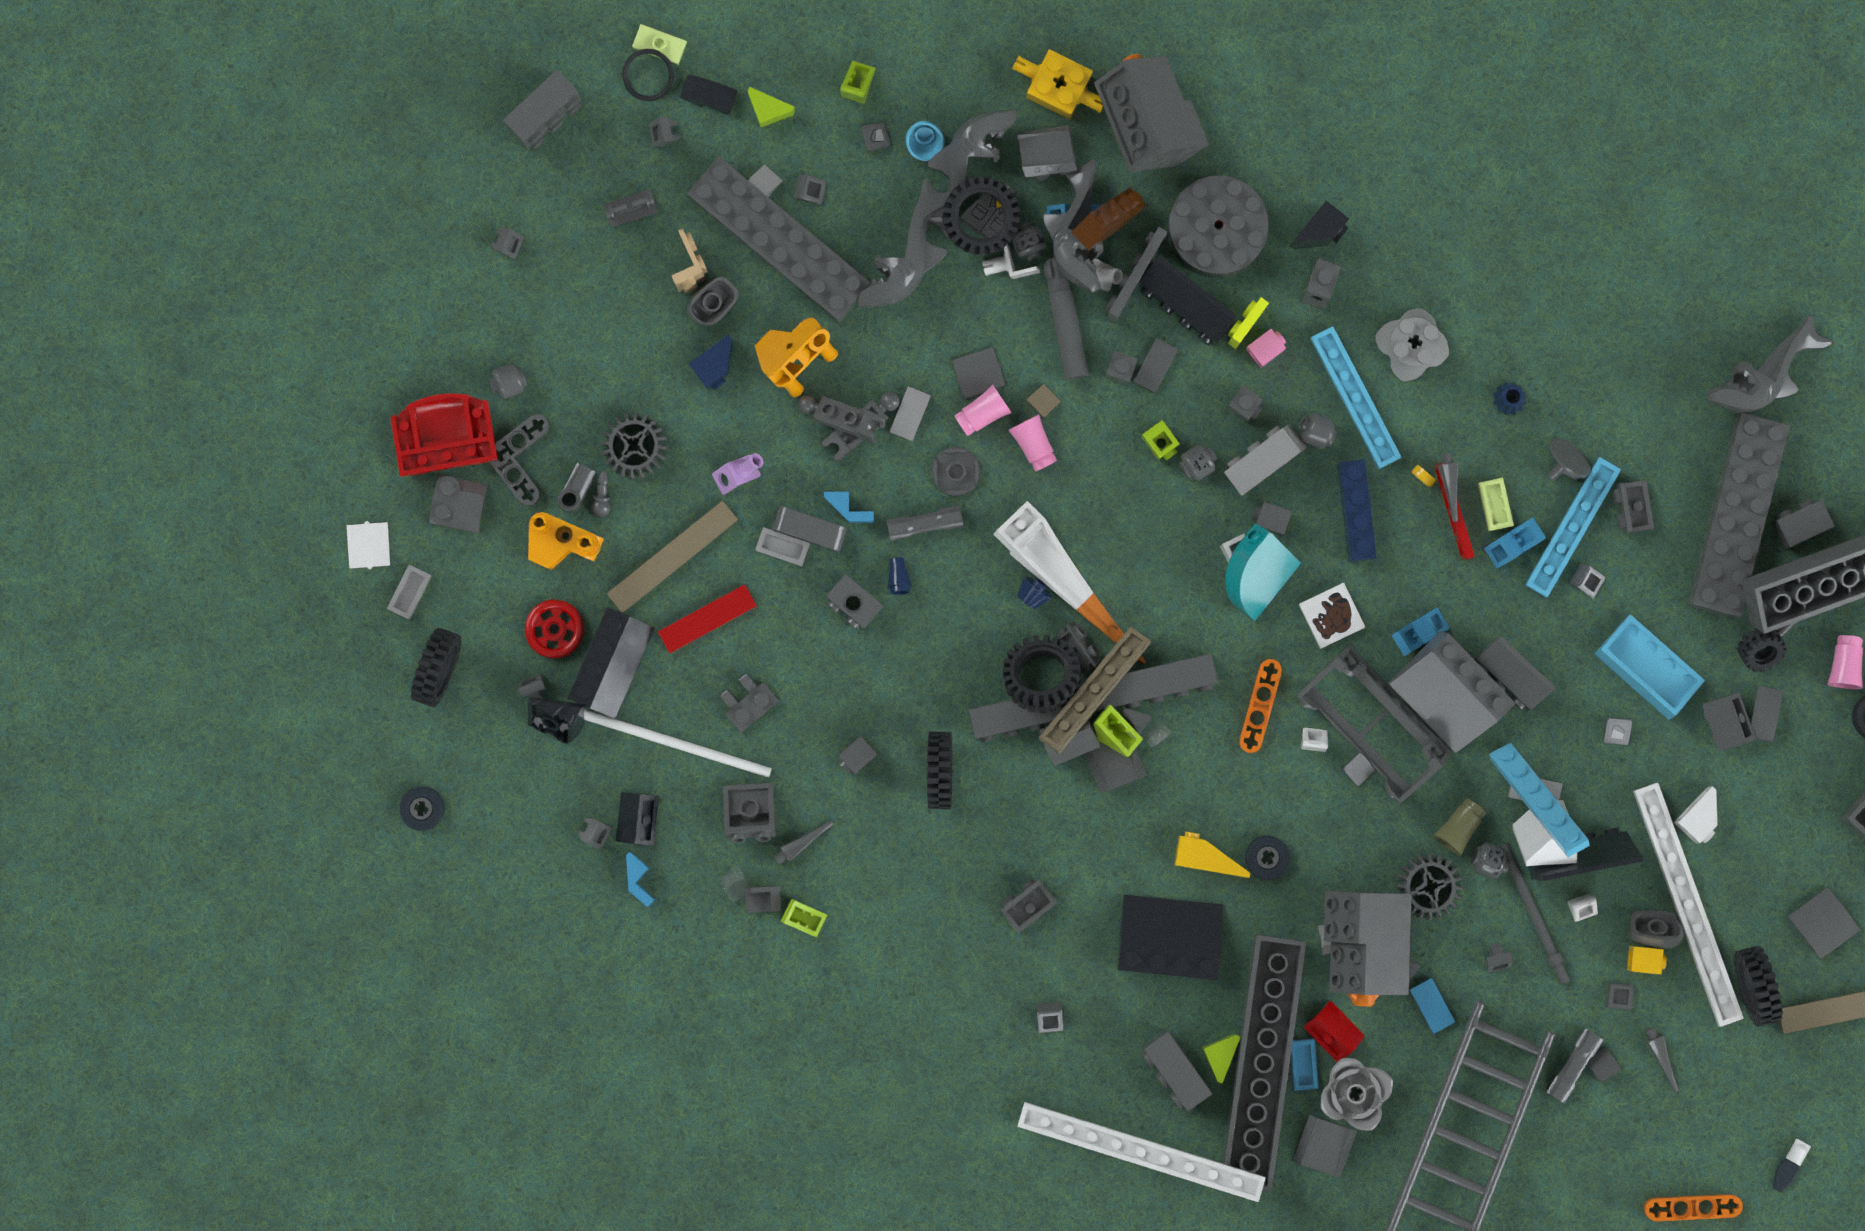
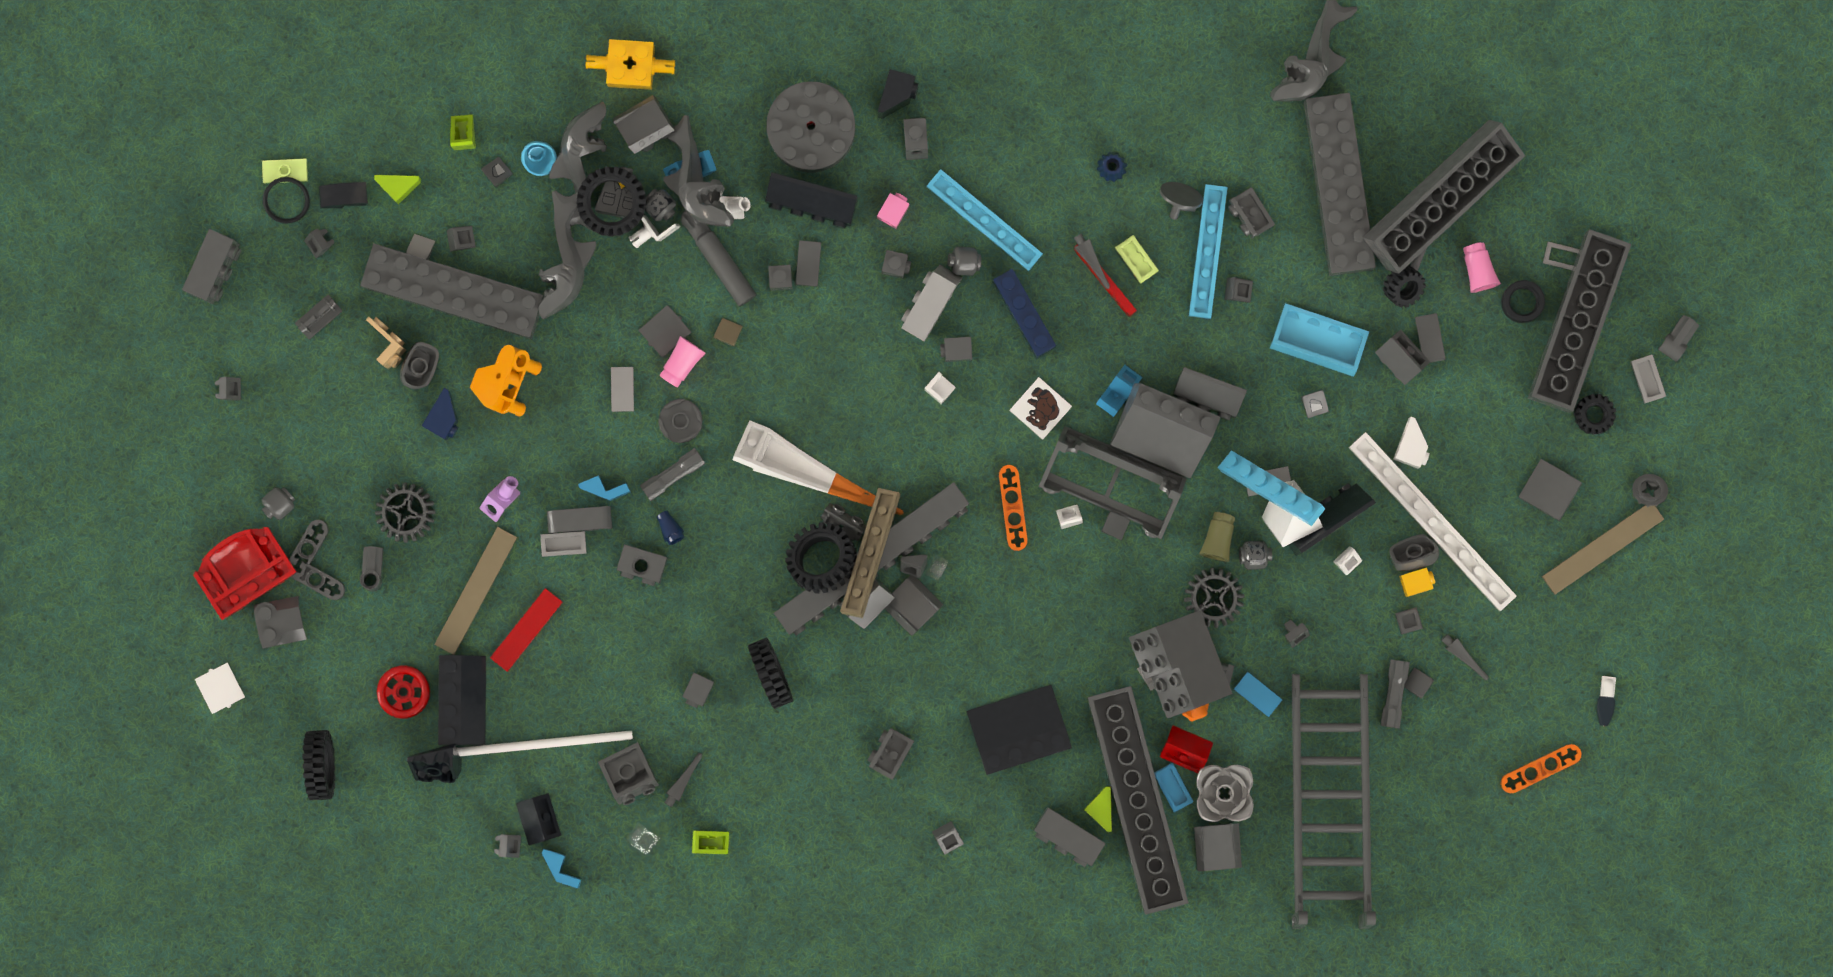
camera: 20 degrees left, 0 degrees up
(409, 592) = (270, 712): light grey tile -> none
(433, 802) = (363, 877): black bush -> none
(532, 686) = (405, 747): dark grey tile -> none
(547, 543) = (369, 625): light orange piece -> none
(600, 506) = (398, 573): dark grey bar -> none
(752, 706) = (593, 687): dark grey plate -> none
(762, 899) = (670, 841): dark grey panel -> none
(842, 417) = (567, 416): dark grey plate -> none
(847, 442) = (586, 415): dark grey plate -> none
(1033, 592) = (786, 493): dark blue piece -> none
(1034, 443) = (735, 370): bright pink plant -> none
(1109, 218) = (717, 159): reddish brown brick -> none
(1116, 732) = (903, 580): lime slope -> none
(1139, 267) = (760, 187): dark grey plate -> none
(1142, 1151) = (1068, 915): white plate -> none
(1150, 114) = (714, 58): dark grey piece -> none
(1161, 431) = (835, 316): lime brick -> none
(1197, 462) = (876, 329): dark grey head -> none
(1201, 855) = (1018, 651): yellow slope -> none
(1251, 315) = (869, 188): neon yellow plate -> none
(1258, 571) = (963, 398): brick -> none
(1279, 861) = (1060, 633): black bush -> none
(1406, 361) = (1017, 172): light grey brick -> none
(1423, 476) = (1067, 261): yellow tile -> none
(1514, 543) = (1165, 284): dark azure slope -> none
(1554, 958) = (1341, 612): dark grey bar -> none
(1758, 986) = (1515, 564): black tyre -> none
(1802, 524) = (1395, 167): dark grey brick -> none

